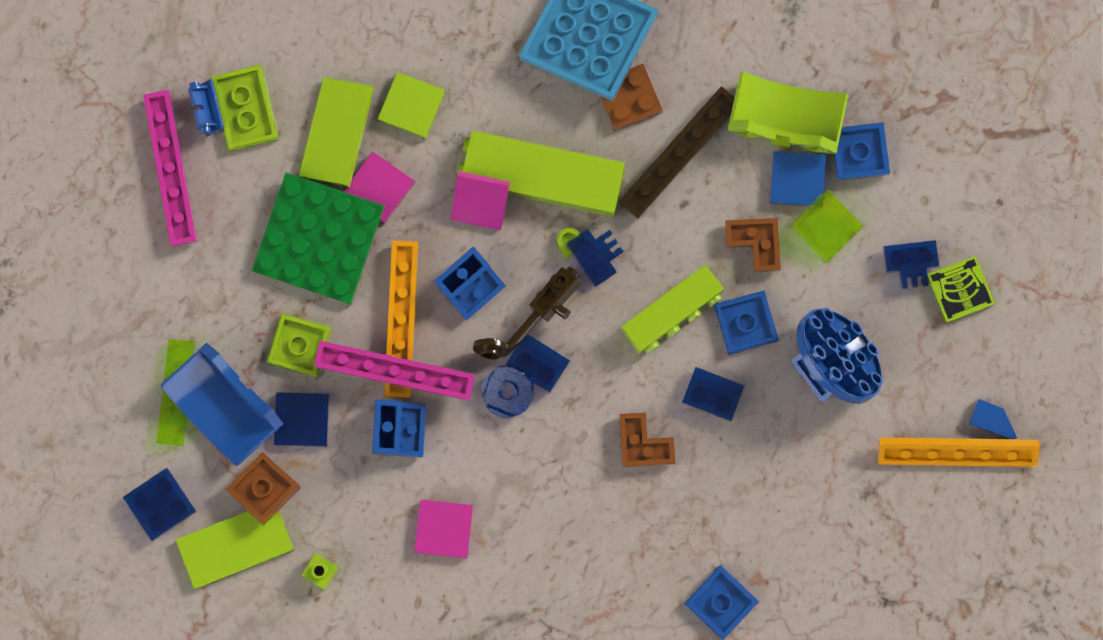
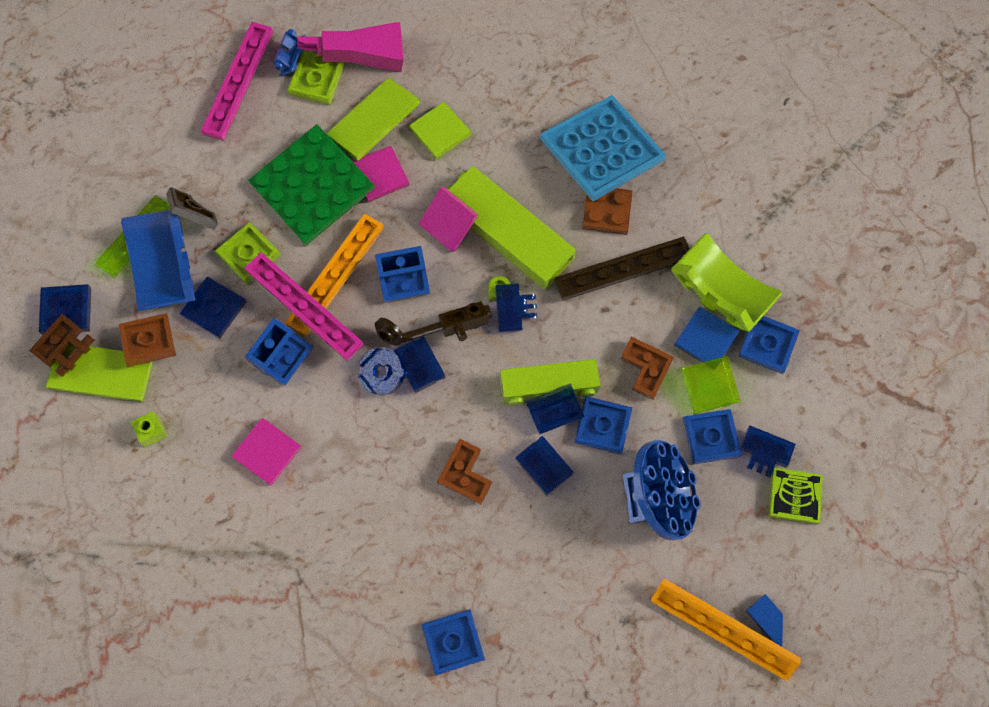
camera: 25 degrees right, 10 degrees down
(179, 537) = (57, 340): none -> reddish brown plate
(216, 336) = (186, 207): none -> dark brown tile
(288, 53) = (369, 46): none -> dark pink piece
(693, 334) = (555, 409): none -> clear blue plate
(854, 275) = (712, 436): none -> blue tile

